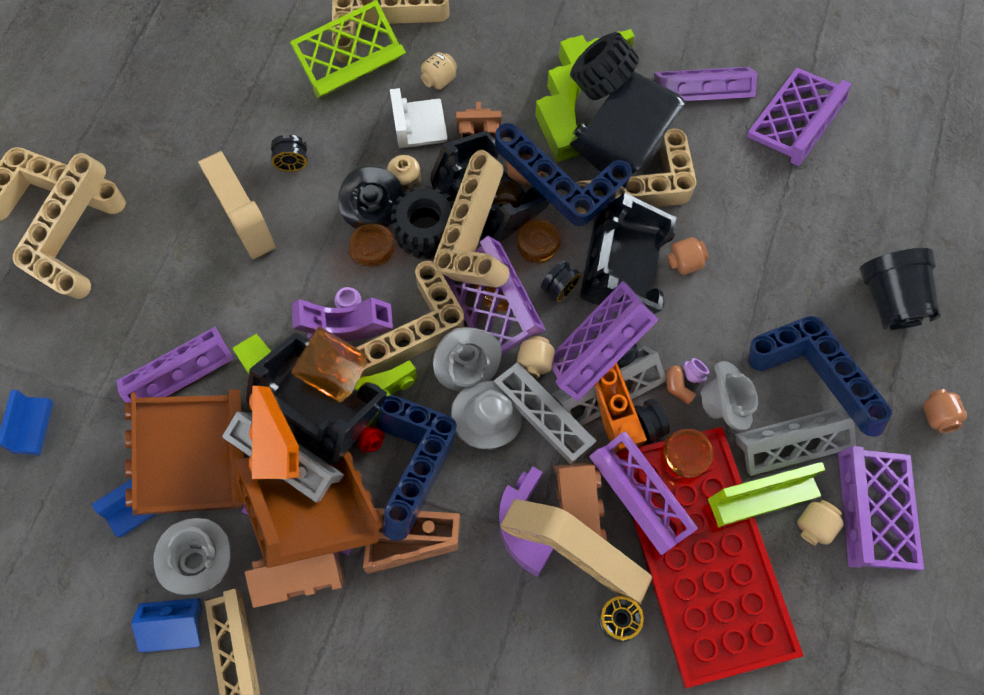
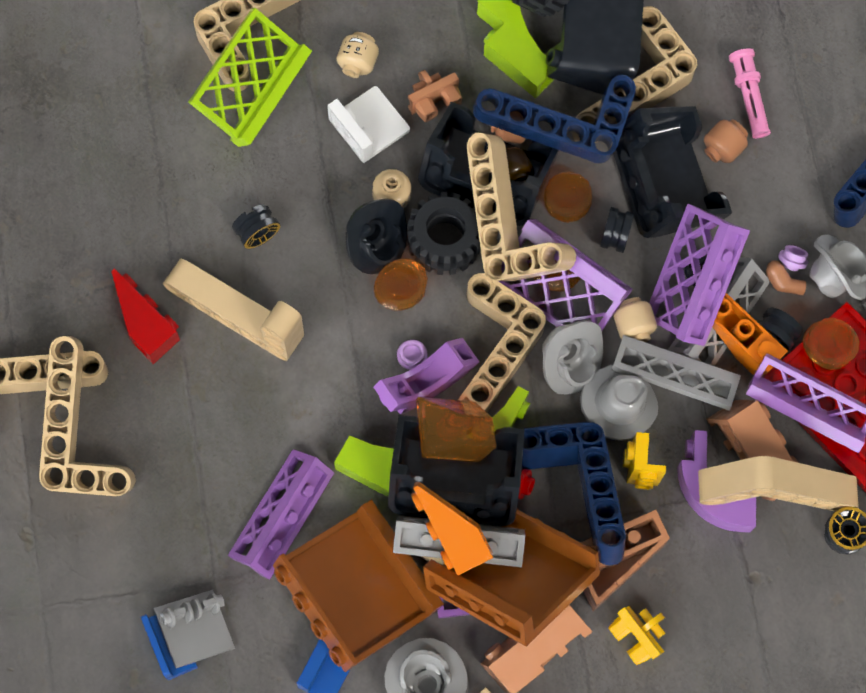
camera: 30 degrees left, 5 degrees up
(50, 422) = (194, 628): none -> light grey hinge
(165, 182) = (145, 325): none -> red slope
(396, 612) = (630, 622): none -> yellow hips
(471, 463) = (636, 460): none -> yellow bracket
(731, 220) = (747, 78): none -> bright pink pin

